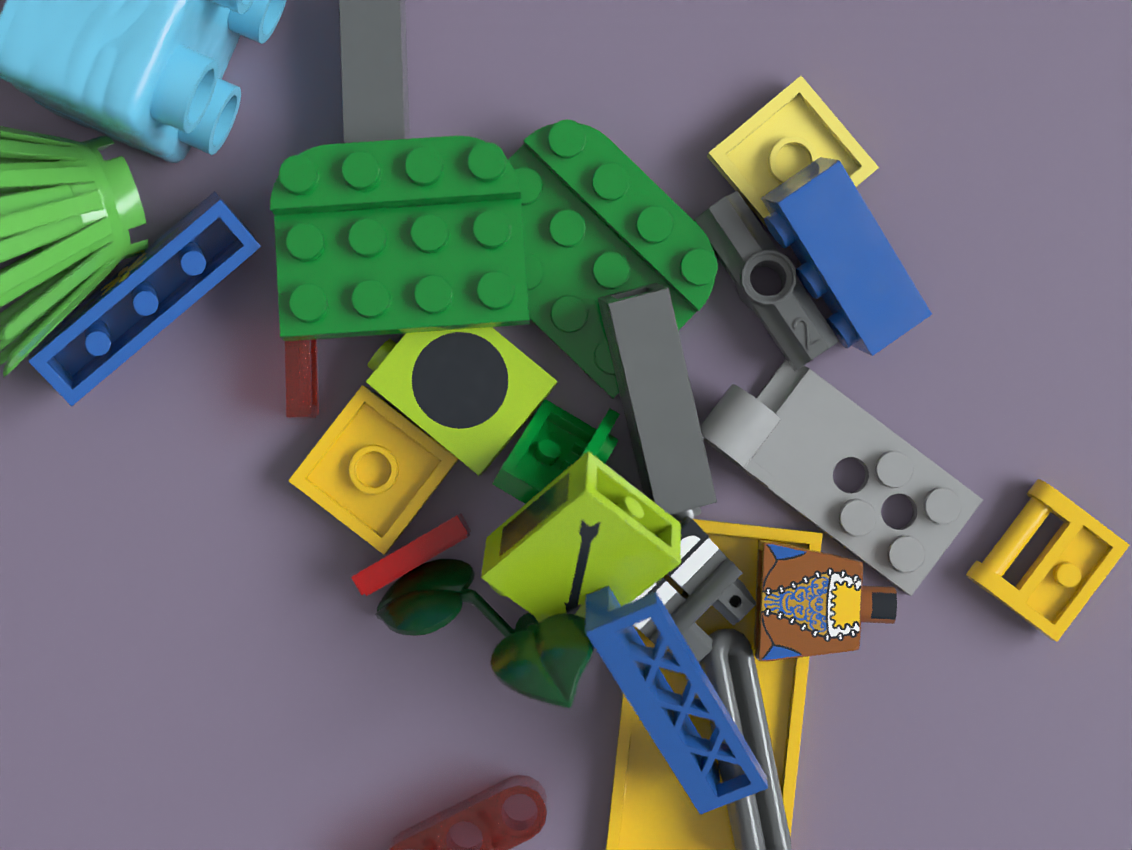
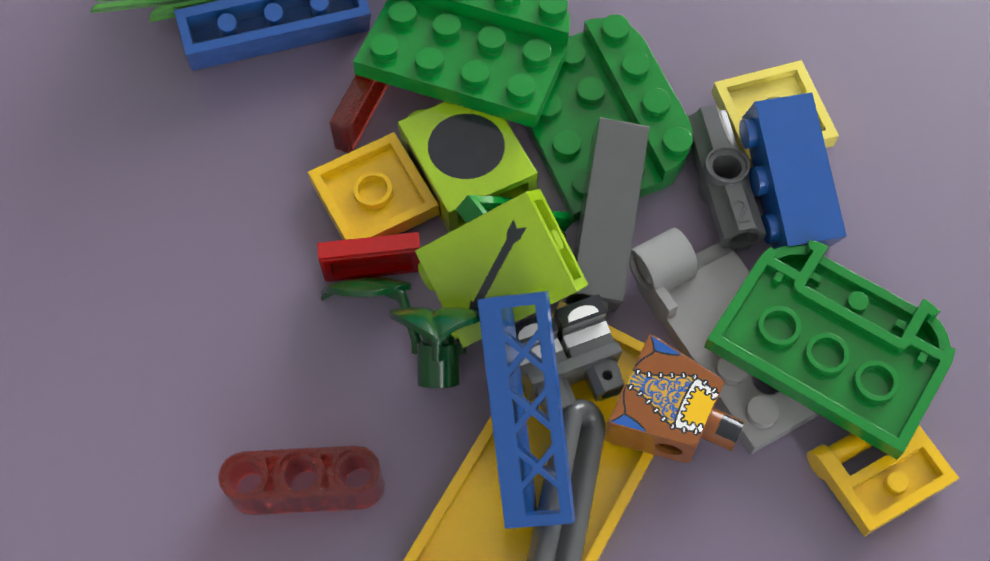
camera: 20 degrees right, 25 degrees down
(960, 449) = (836, 344): none -> green plate

